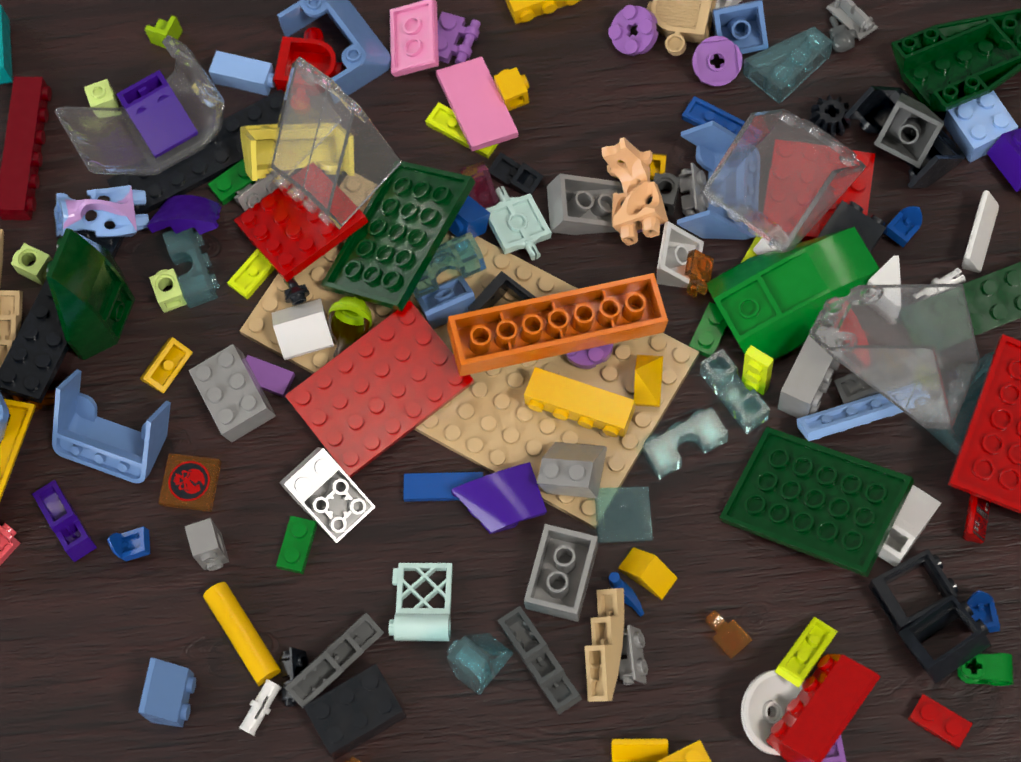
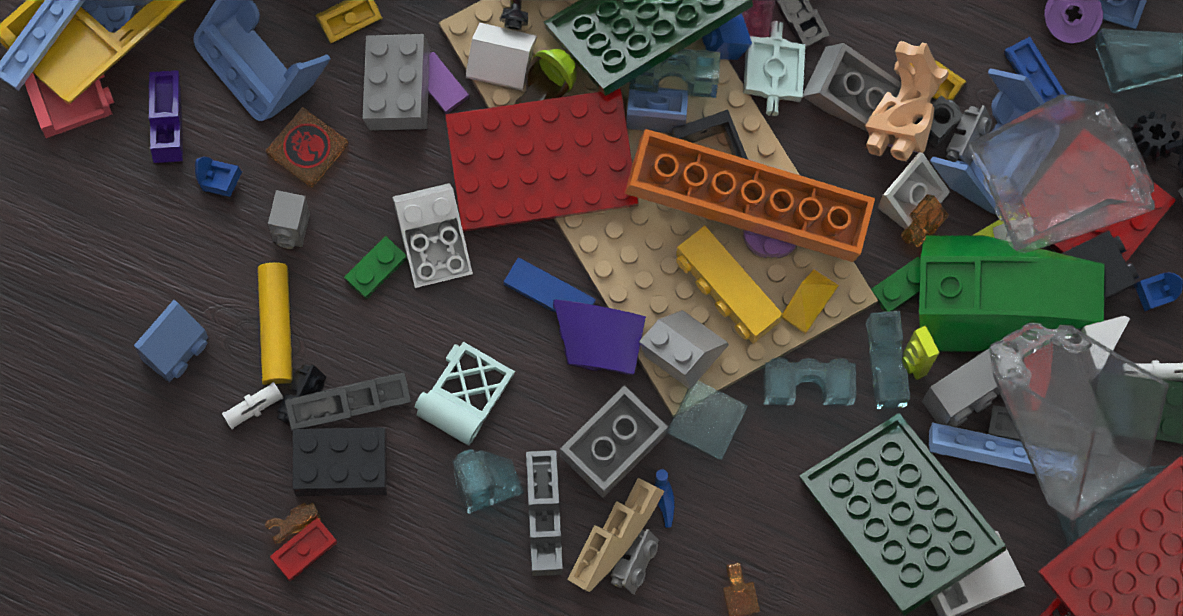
camera: 15 degrees right, 5 degrees up
(648, 572) = (698, 489): yellow slope -> none

